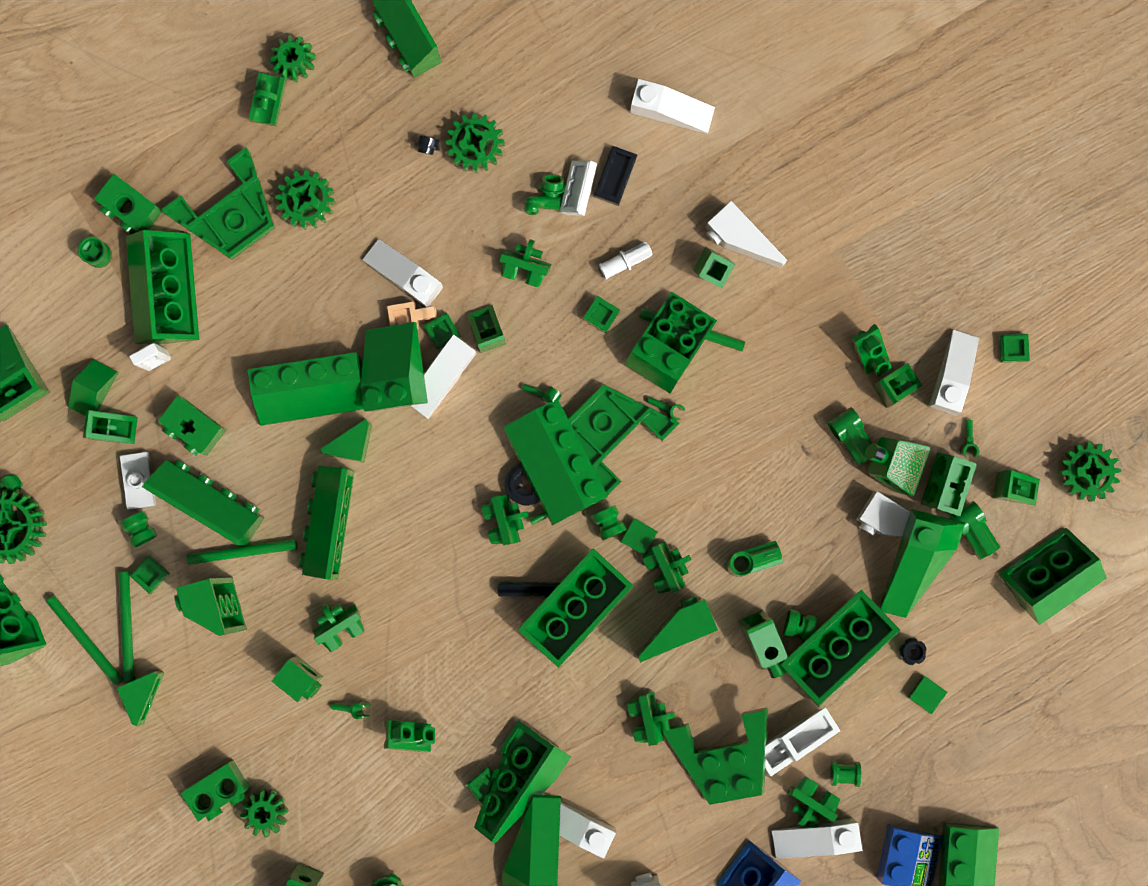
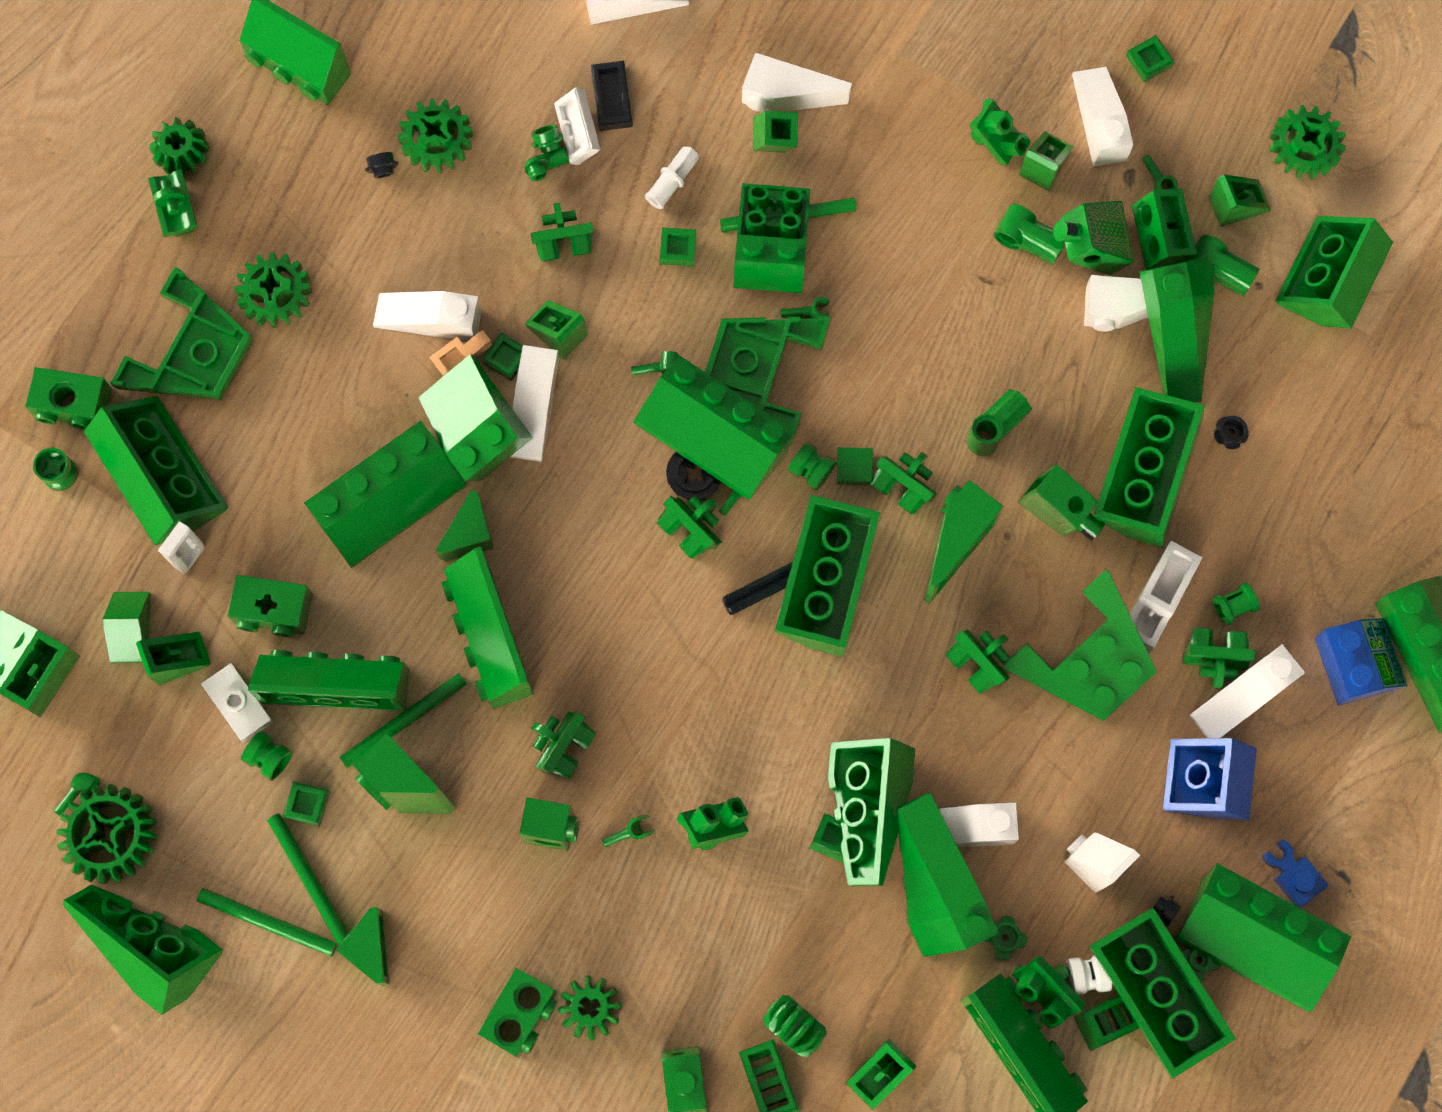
camera: 30 degrees left, 10 degrees down
(799, 624) = (1089, 466): green wheel -> none
(927, 694) = (1274, 471): green tile -> none

